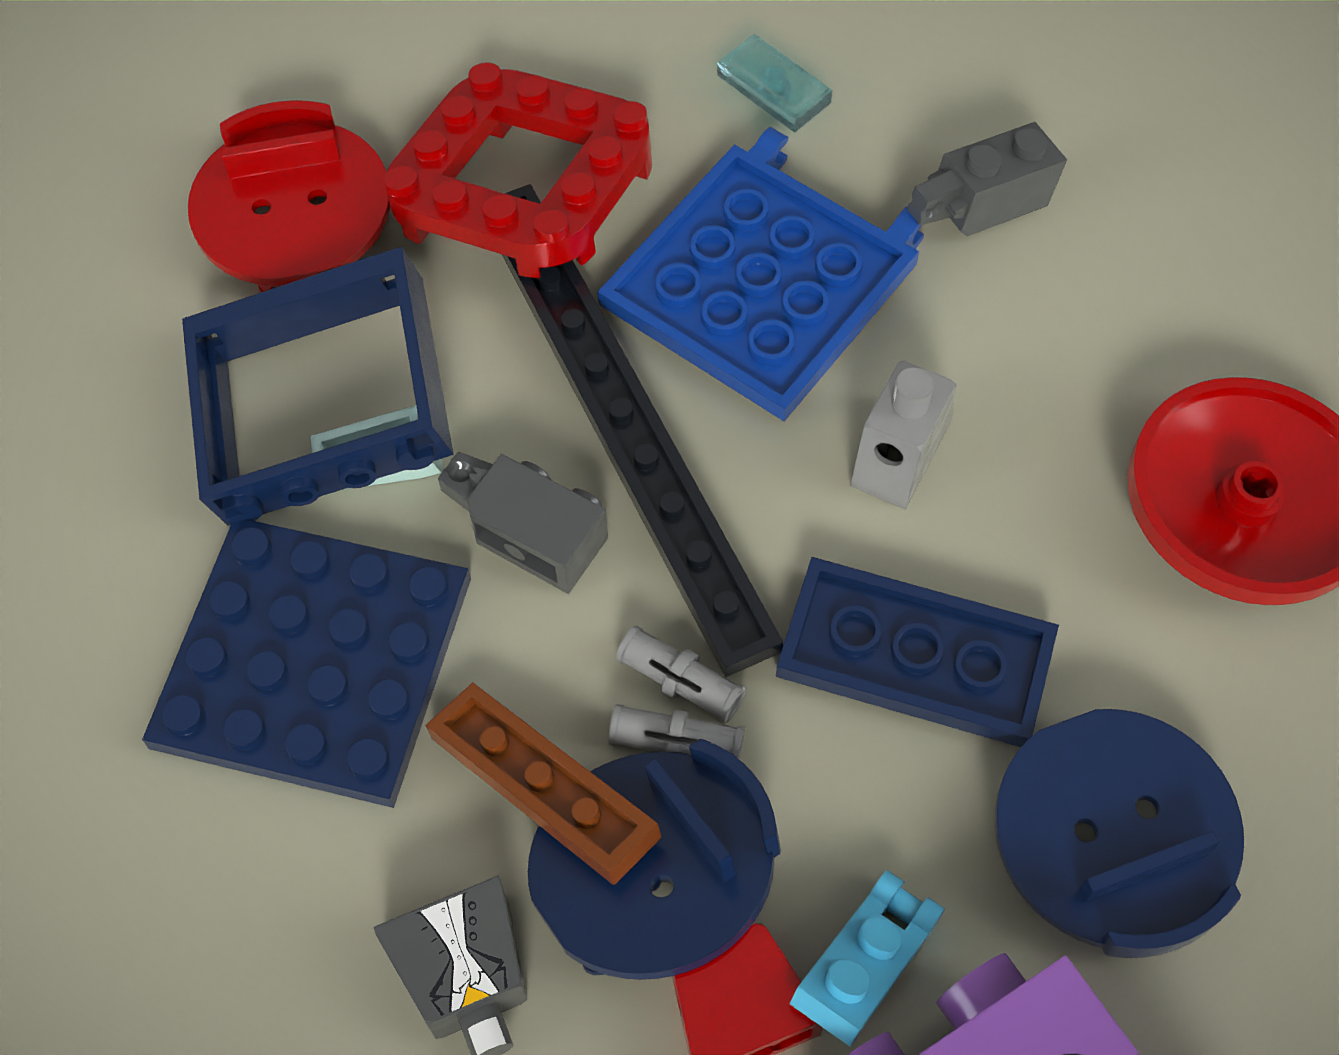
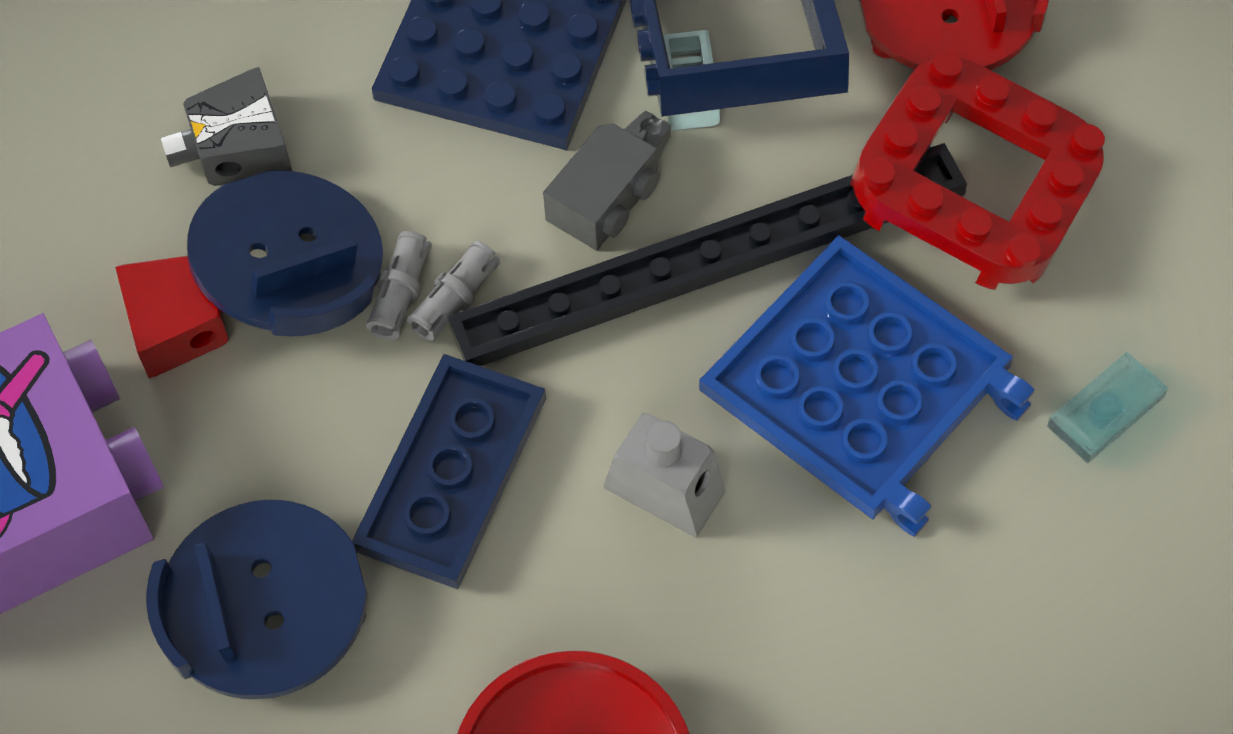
camera: 95 degrees right, 0 degrees up
(545, 783) = (359, 178): dark orange plate -> none
(866, 959) = (185, 394): medium azure plate -> none
(991, 181) = (956, 581): dark grey hinge -> none

